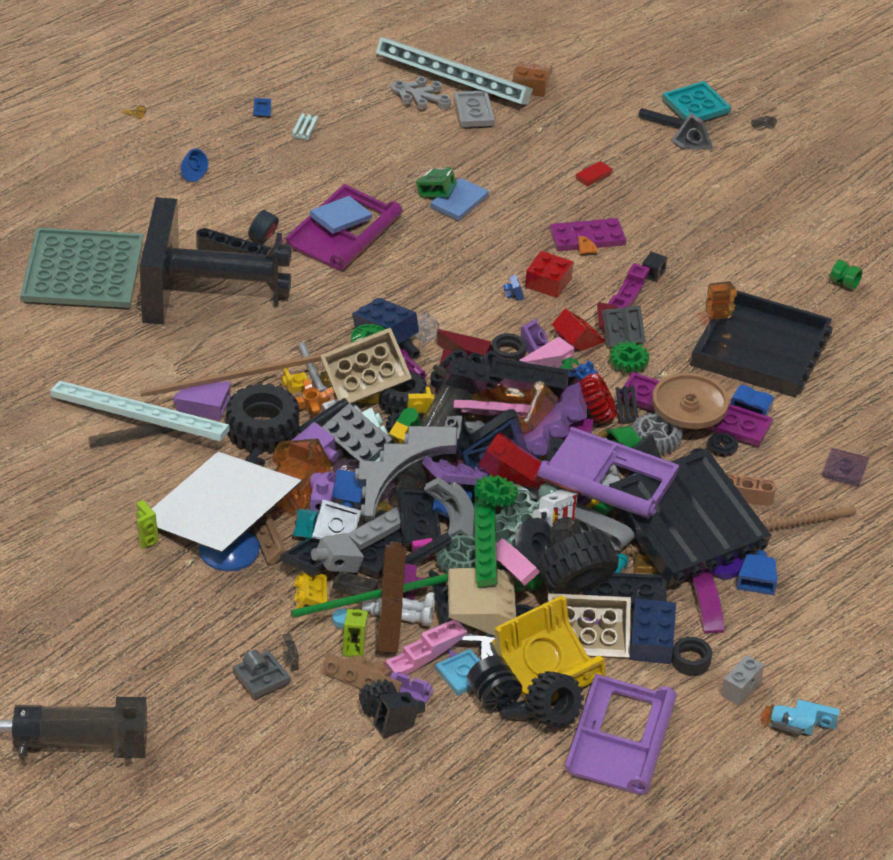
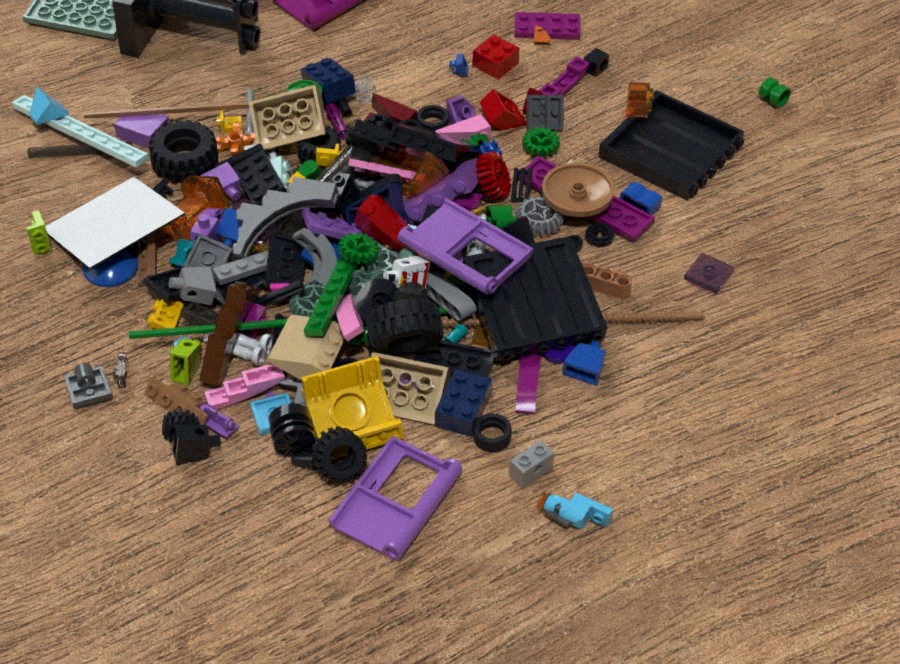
camera: 15 degrees right, 5 degrees up
(95, 392) = (46, 108): none -> medium azure slope

